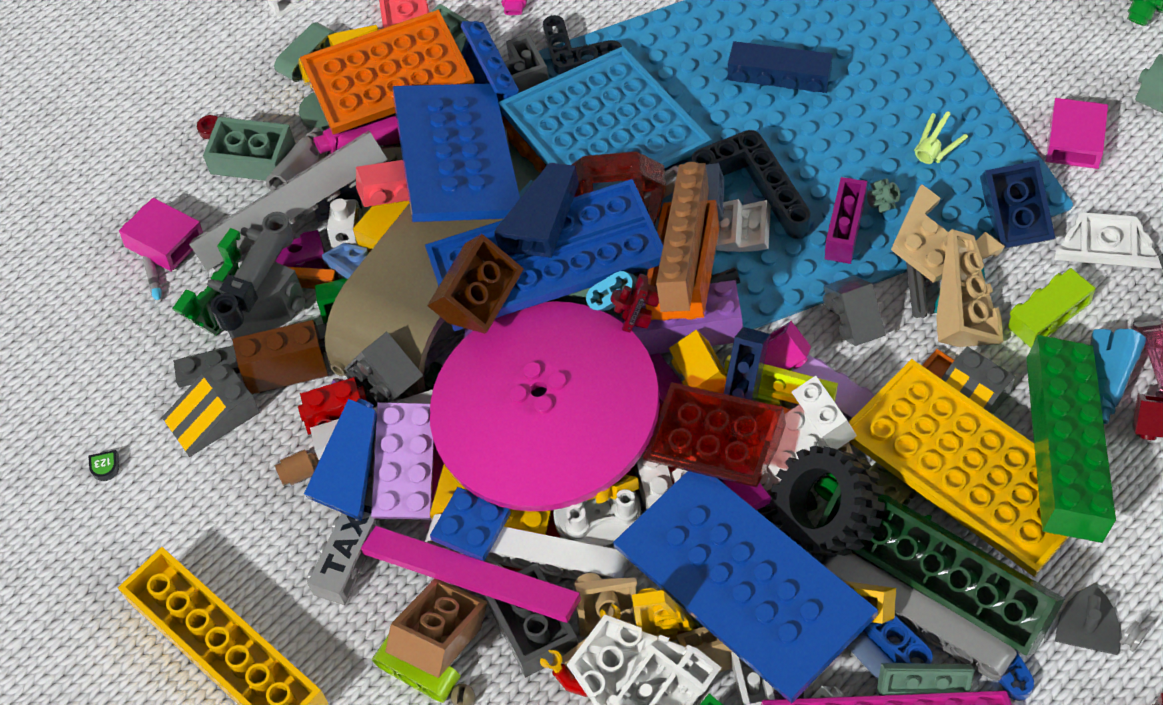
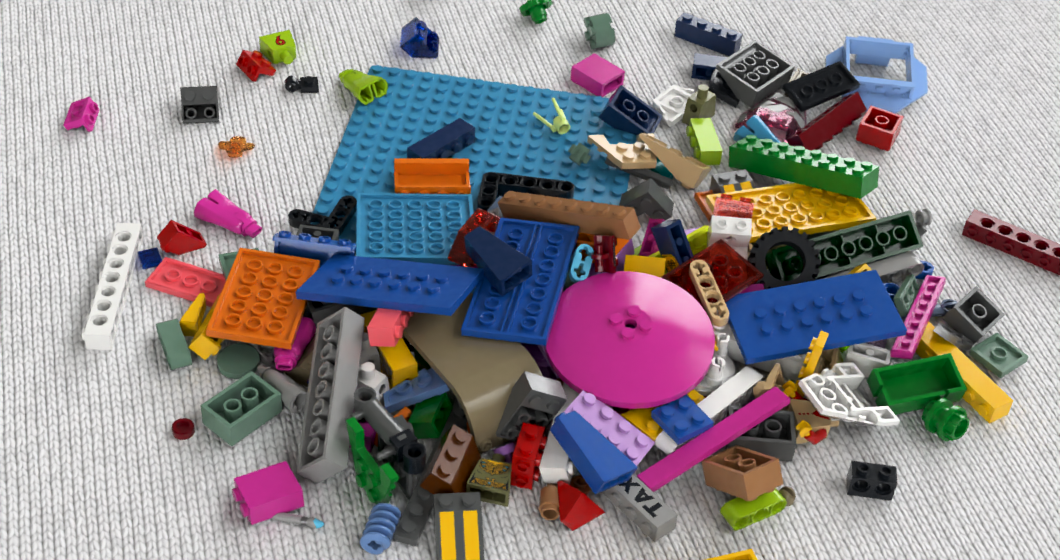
camera: 70 degrees left, 15 degrees down
(171, 343) = (380, 528): none -> medium blue piece
(284, 397) = (491, 480): none -> olive torso
(291, 498) = (575, 507): none -> red slope
(476, 285) = (529, 311): reddish brown slope -> none
(678, 445) = (710, 292): none -> tan beam
(713, 94) = (432, 175): none -> orange panel
(845, 220) = (586, 173): magenta brick -> none
(898, 396) = (731, 207): none -> clear red bracket
(1112, 266) = (700, 104): none -> olive torso

